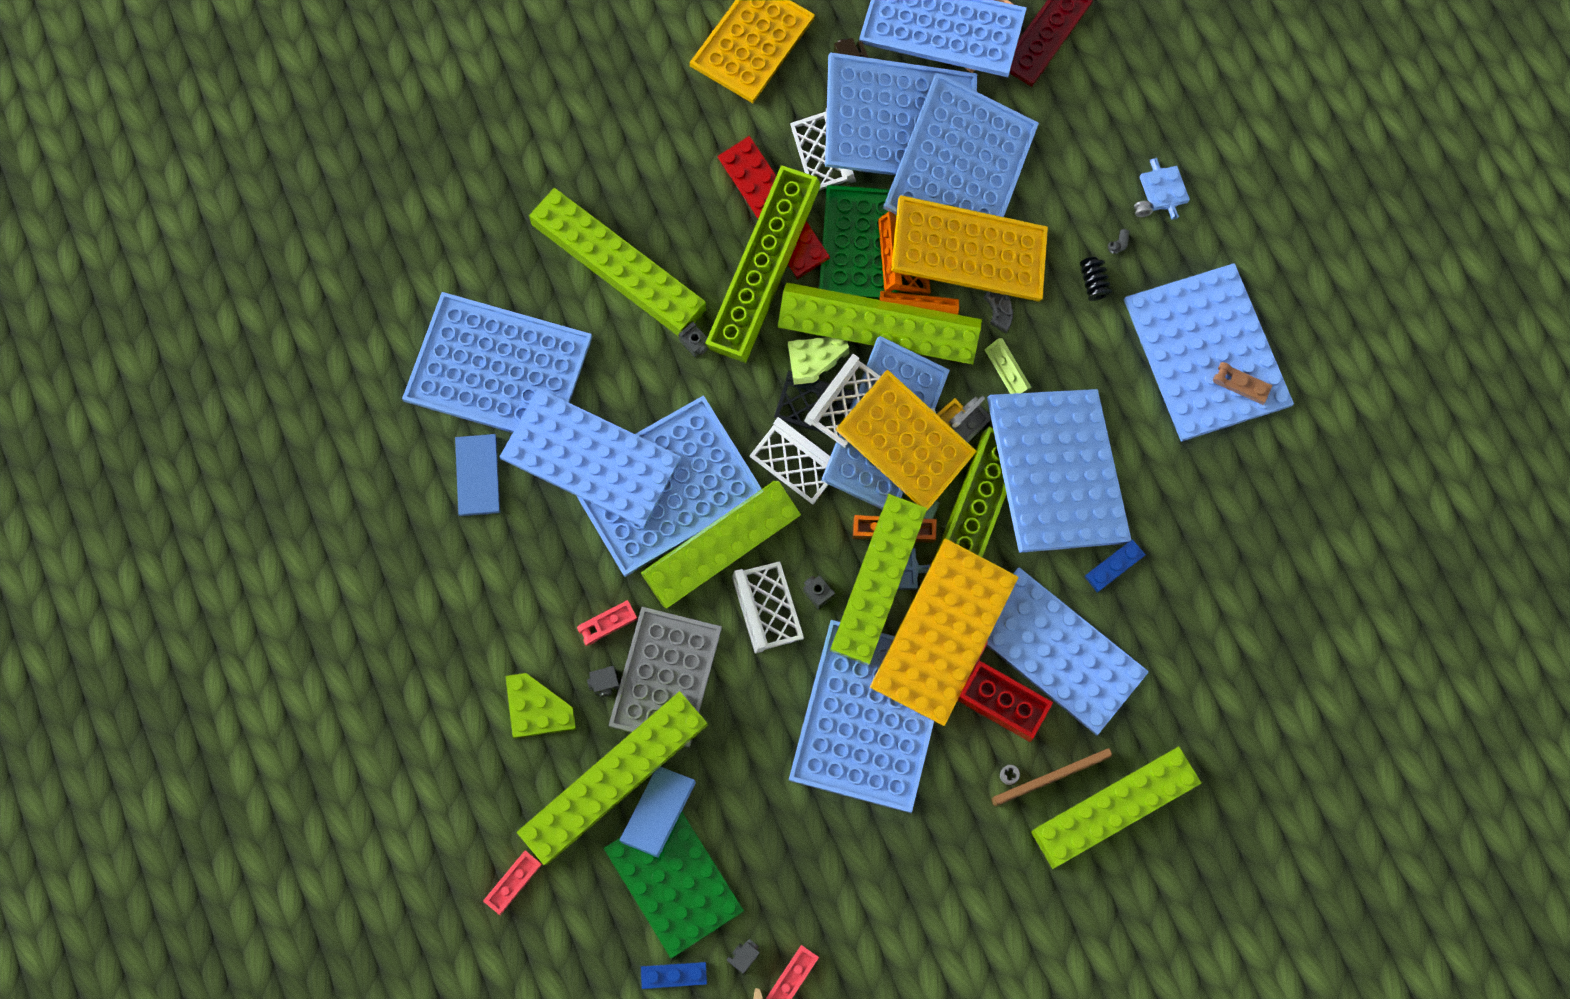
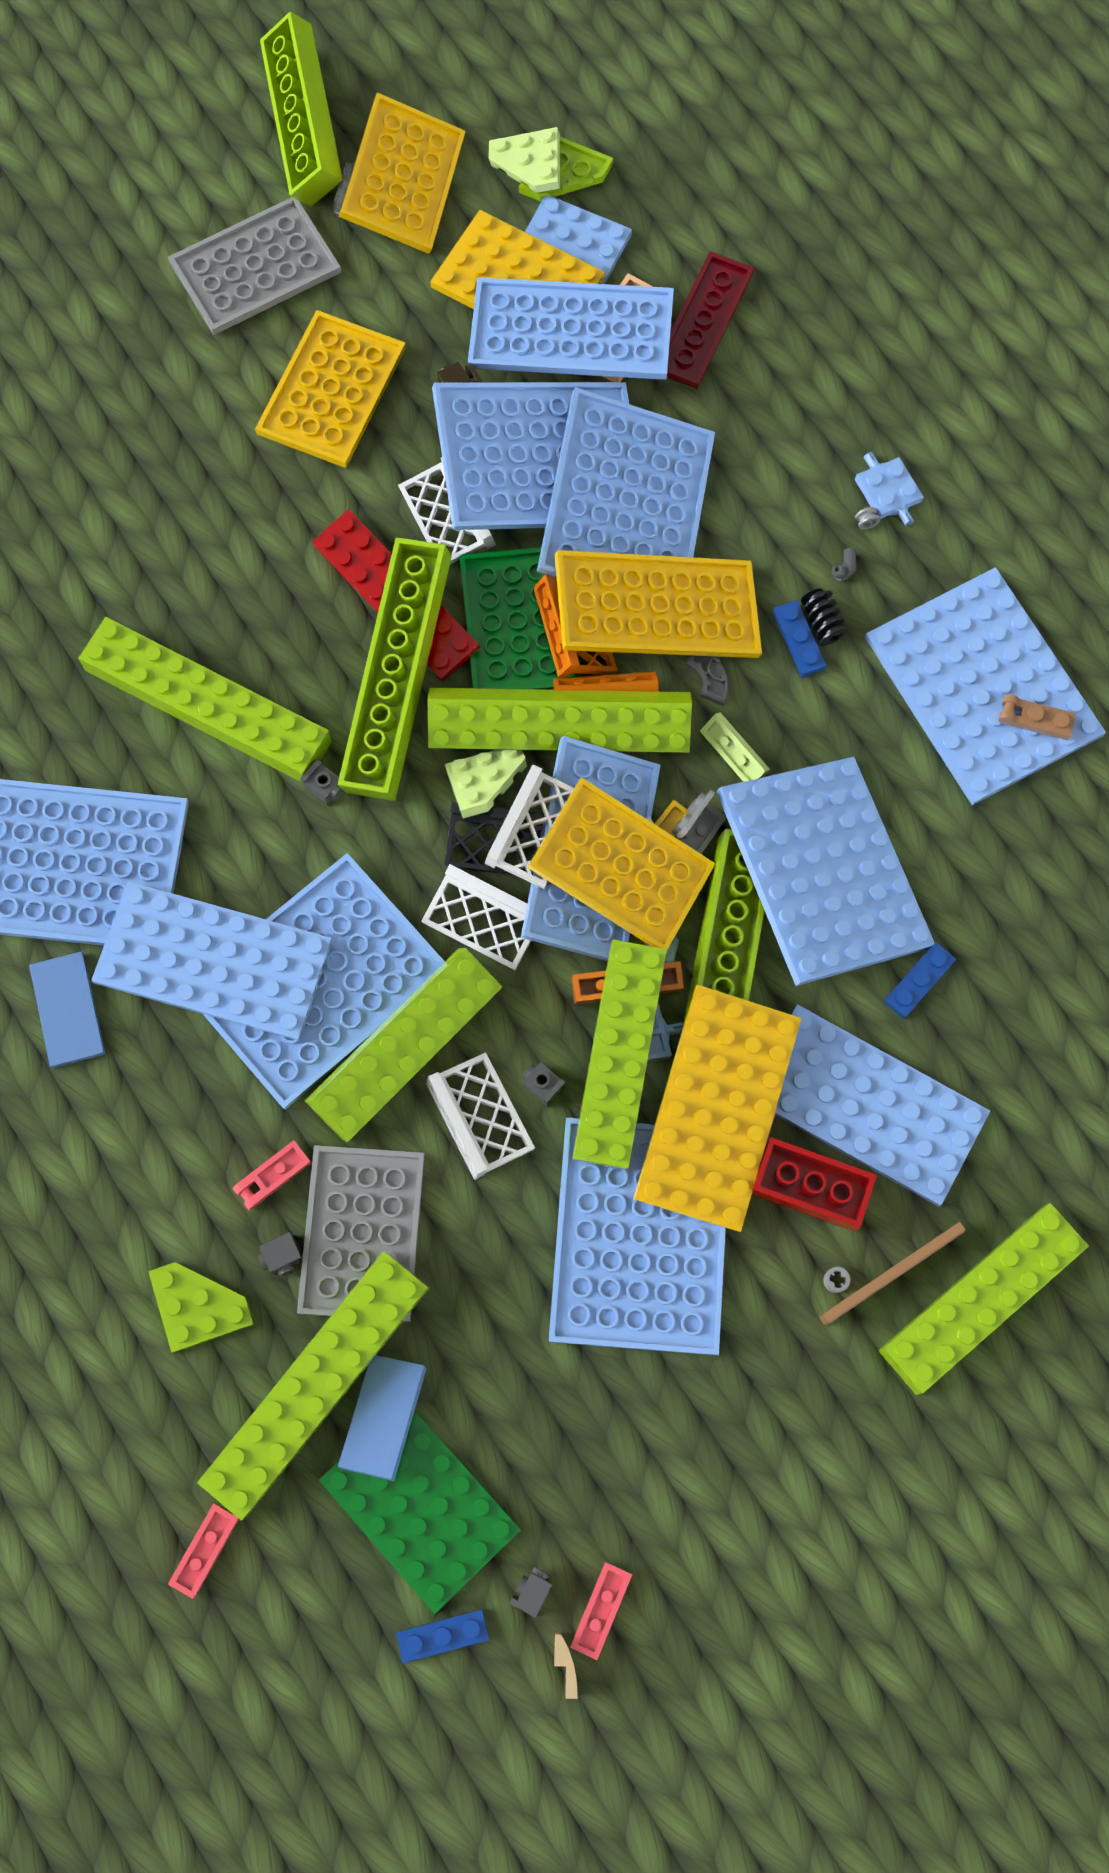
camera: 10 degrees left, 0 degrees up
(1073, 292) = (799, 638): none -> blue plate

